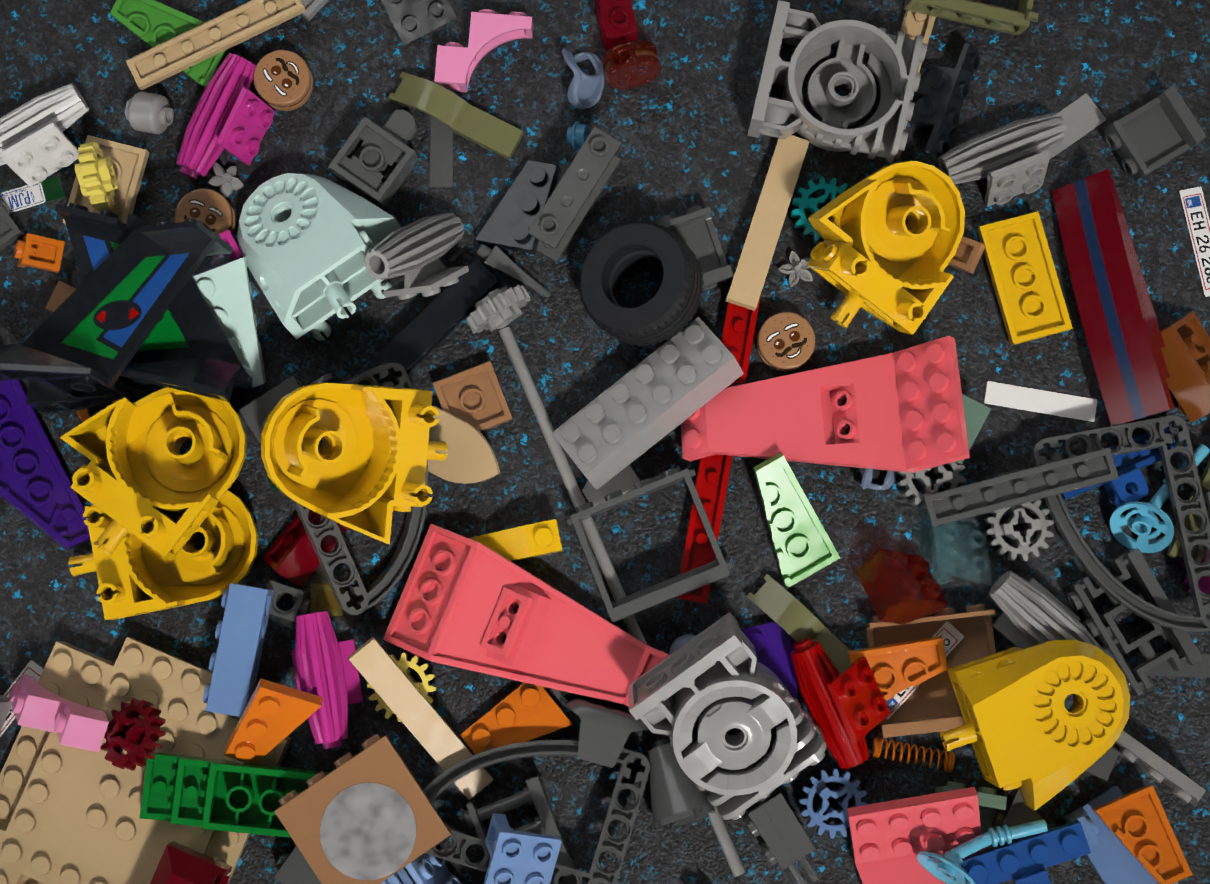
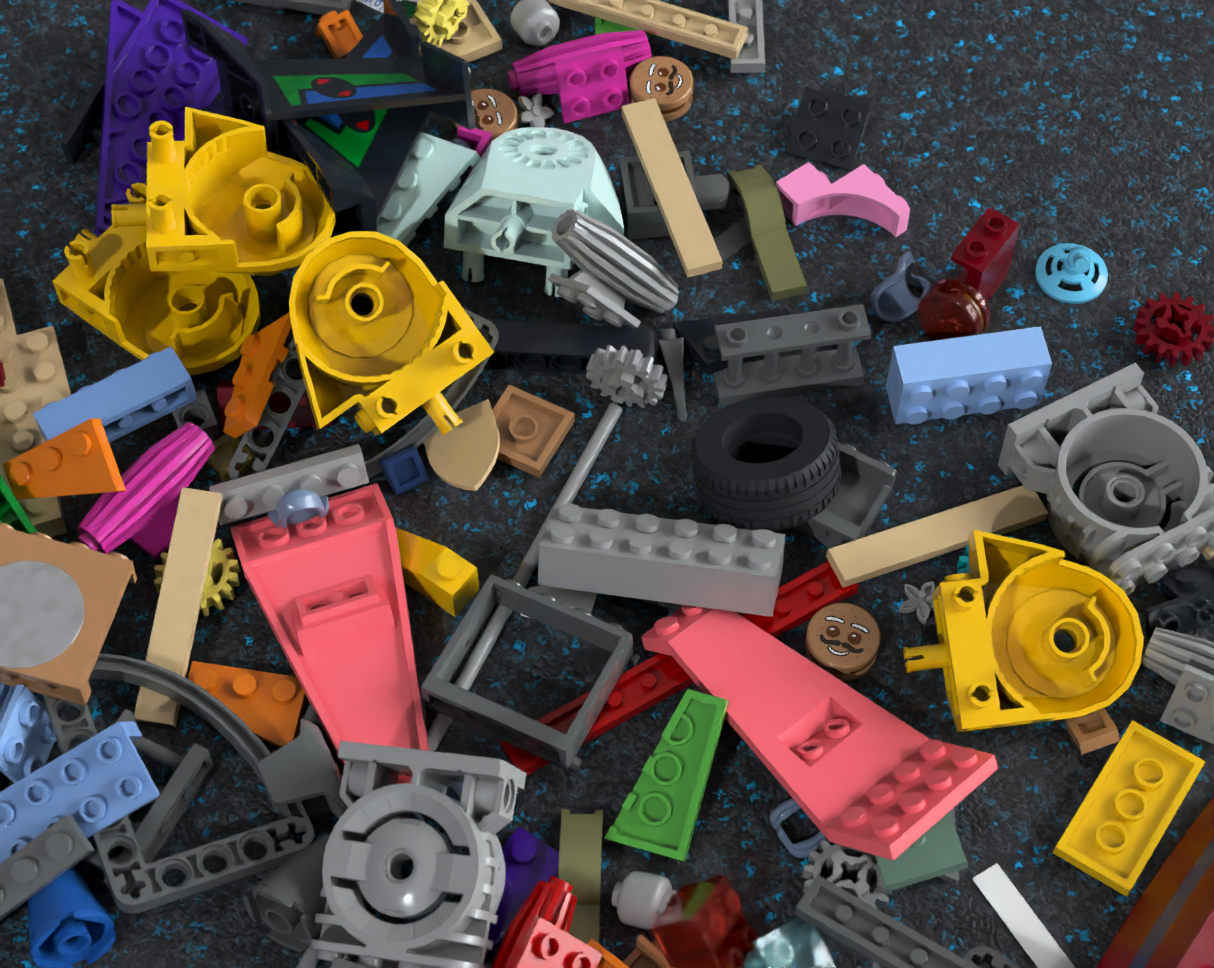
camera: 50 degrees right, 25 degrees down
(290, 536) = (251, 381): none -> orange wing
(384, 155) = (671, 188): none -> tan tile
(393, 583) = (263, 490): none -> light grey plate
(419, 592) = (298, 507): none -> sand blue piece
(440, 501) = (403, 469): none -> dark blue tile
(684, 100) = (968, 375): none -> light blue brick
(846, 601) = (642, 898): none -> light grey head

